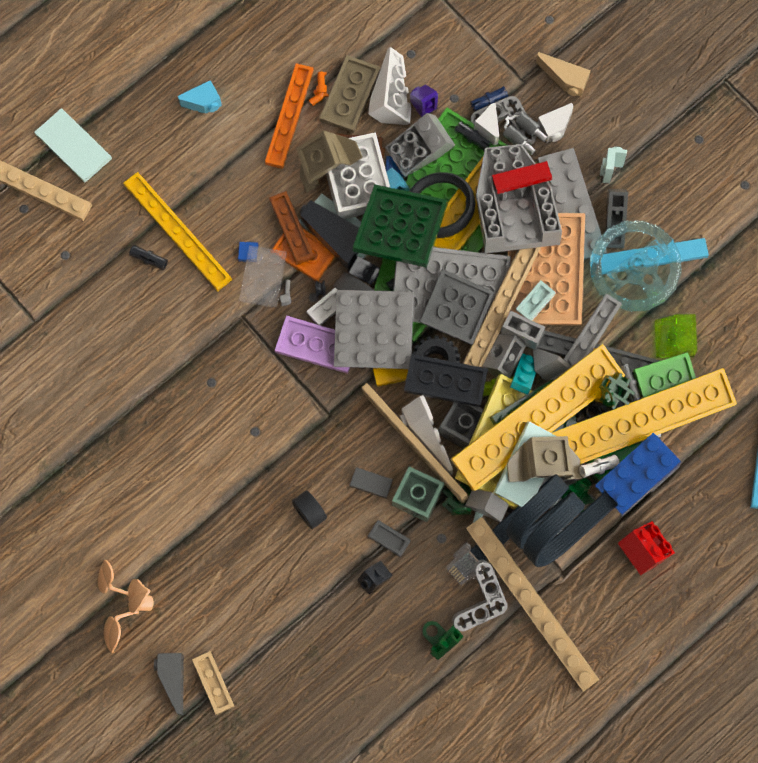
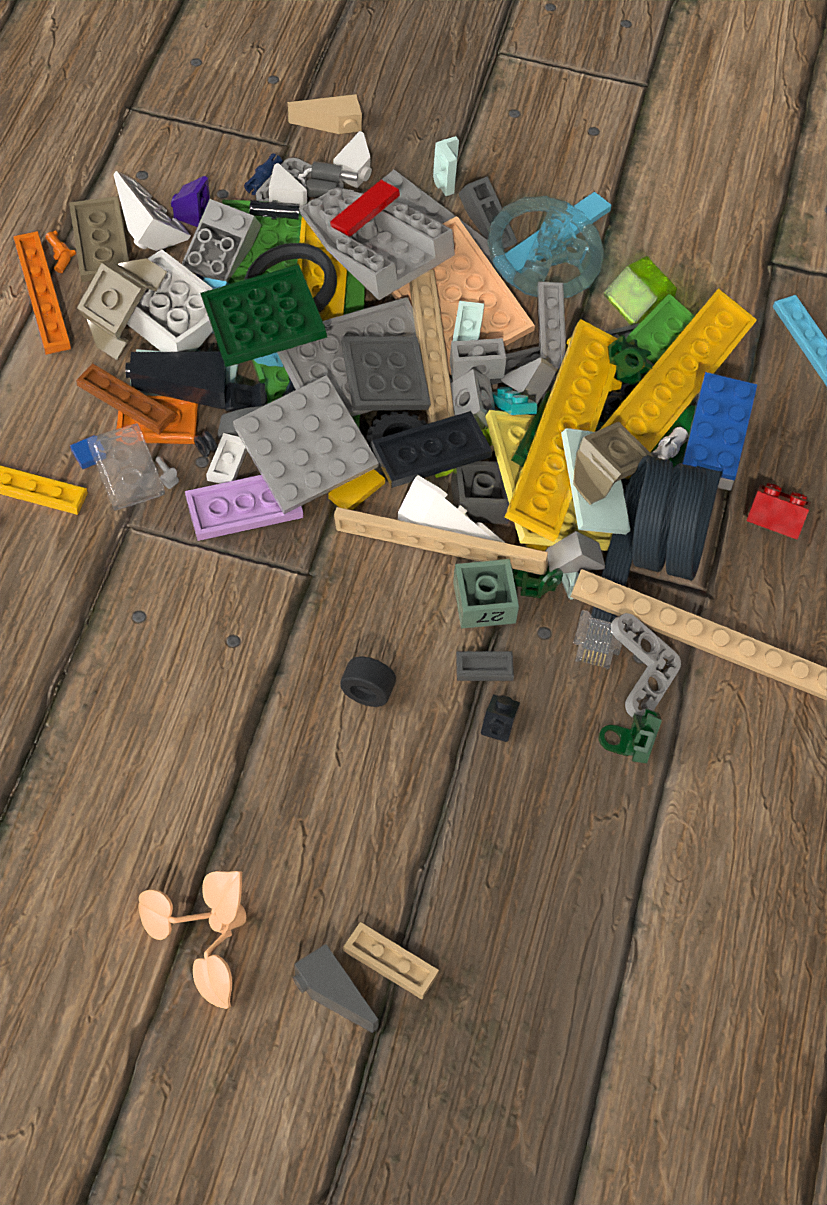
camera: 40 degrees left, 15 degrees down
(371, 483) = (418, 617): dark grey tile -> none

